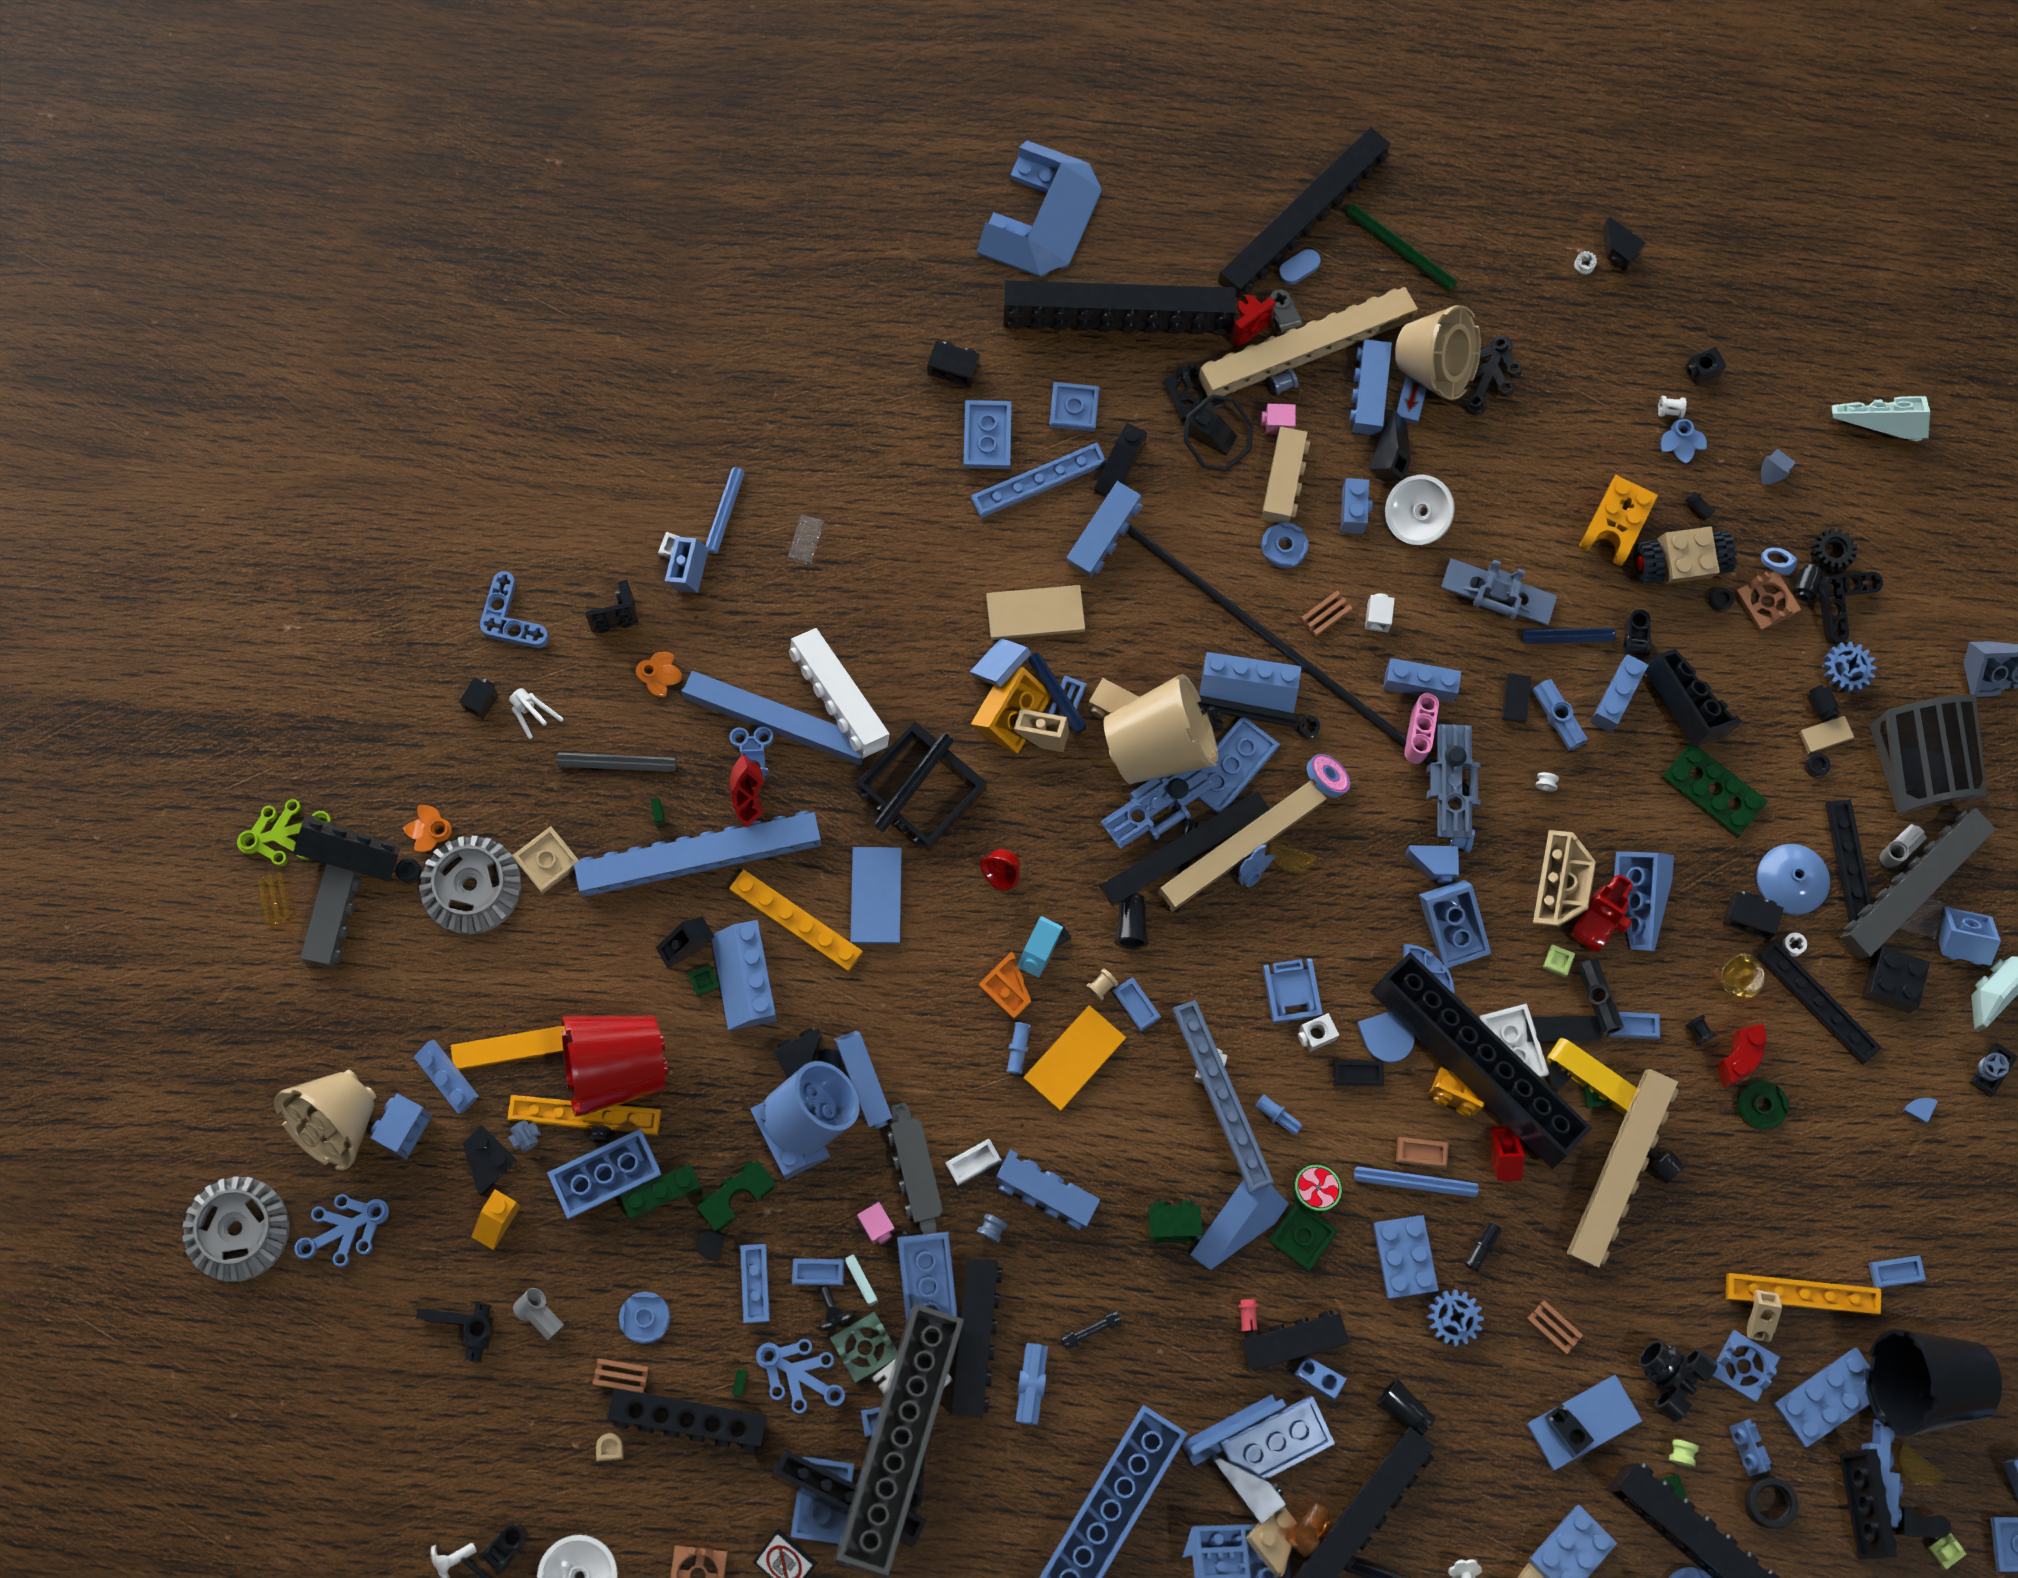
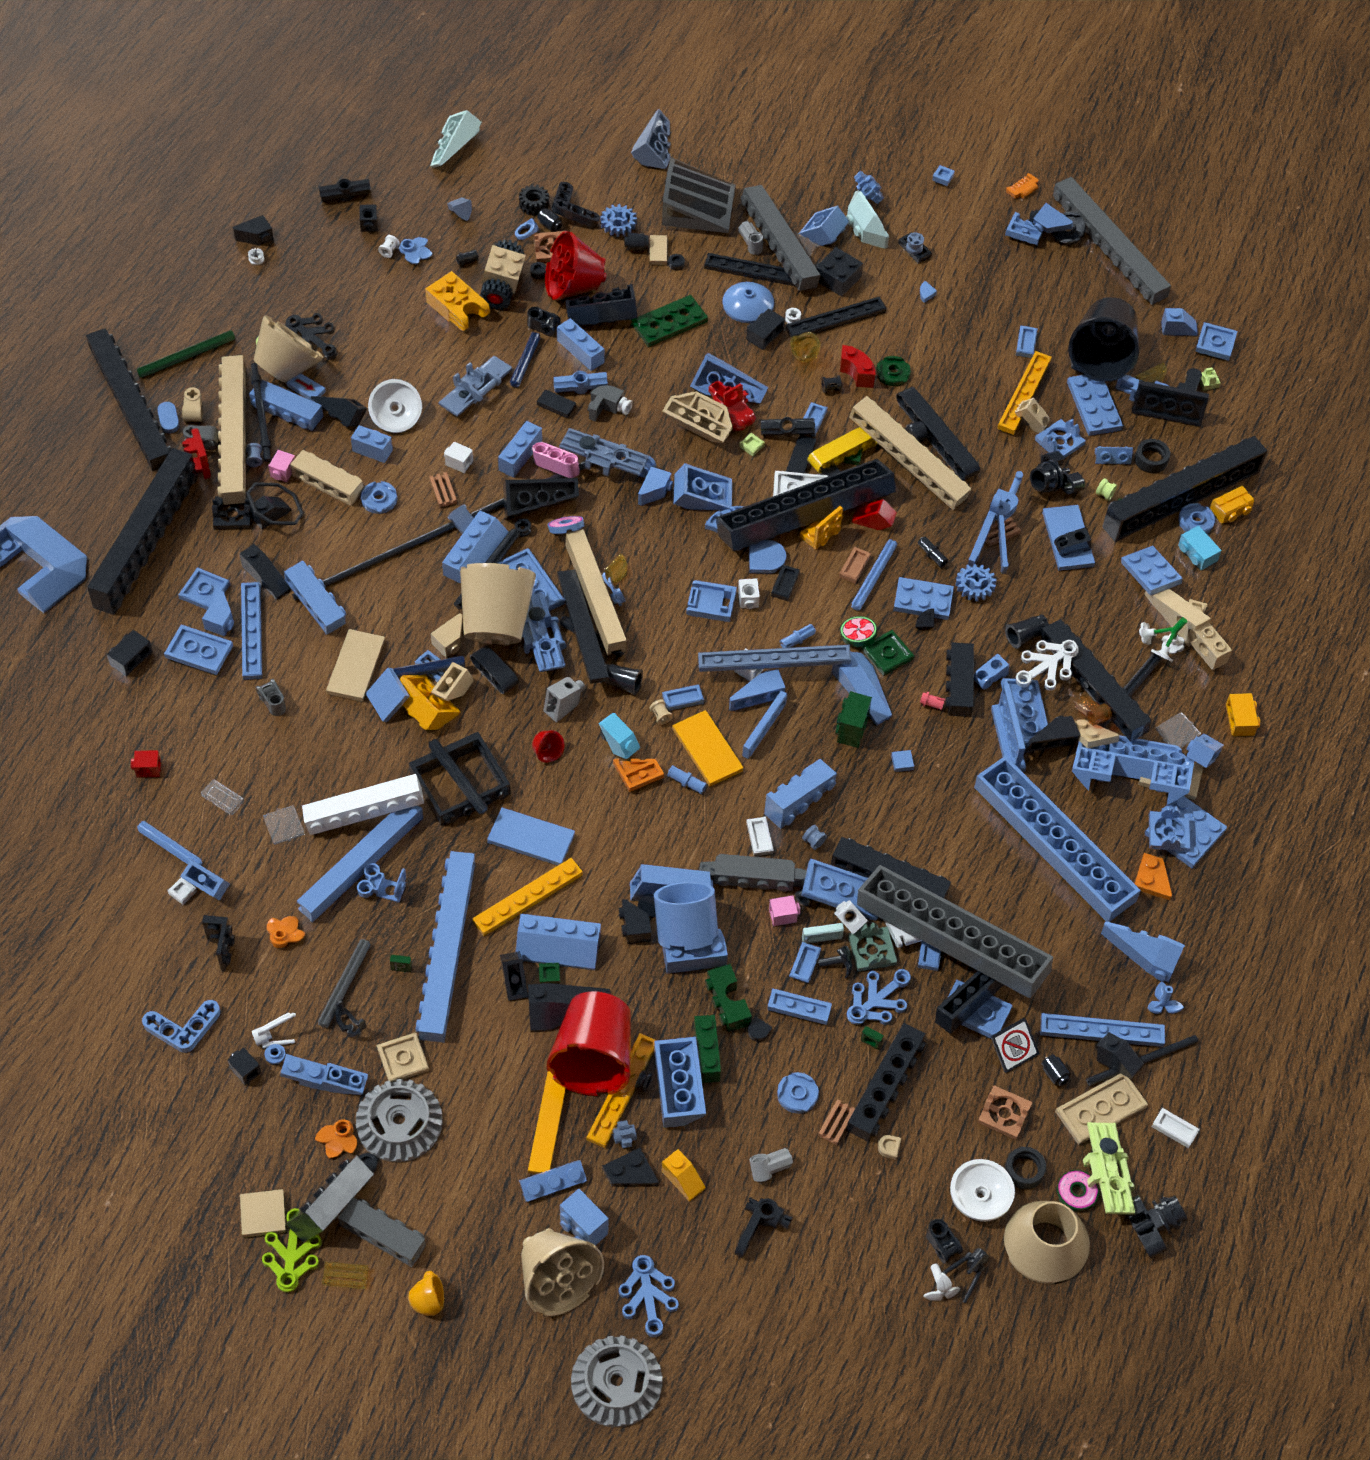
camera: 70 degrees left, 15 degrees down
(269, 992) = (427, 1295): none -> light orange piece
(319, 786) = (262, 1213): none -> tan tile
(493, 784) = (323, 1077): none -> medium blue slope
(506, 730) = (275, 1059): none -> medium blue plate
(579, 771) = (341, 1010): none -> black helmet
(659, 995) = (550, 1003): none -> black wedge
(744, 788) = (416, 886): red brick -> none
(795, 617) = (283, 824): none -> clear piece
(815, 443) = (146, 763): none -> red brick
(890, 1306) = (856, 922): none -> white brick
(956, 535) = (272, 698): none -> dark grey piece
(1031, 1384) = (936, 847): medium blue piece -> none
(1042, 437) = (218, 616): none -> medium blue slope
(1066, 862) = (562, 698): none -> light grey torso
(1071, 1339) = (907, 786): black bar -> none
(1086, 770) = (494, 669): none -> black beam
(1131, 1116) = (764, 725): none -> medium blue tile
(1146, 1304) = (902, 761): none -> medium blue tile
(1181, 1094) = (759, 690): none -> medium blue slope
(1288, 649) = (461, 518): none -> sand blue tile
(1306, 388) = (265, 442): none -> black bar
(1323, 285) = (192, 406): none -> tan piece
(1355, 1451) = (1048, 661): none -> white plant
(1357, 725) = (536, 494): none -> black wedge
(1371, 1269) = (925, 619): none -> black tile
(1546, 750) = (604, 398): none -> dark grey brick
(1576, 1316) = (1001, 508): none -> medium blue piece
(1679, 1196) = (938, 433): none -> black beam
(1729, 641) = (573, 268): none -> red cone
(1730, 310) = (344, 189): none -> black piece

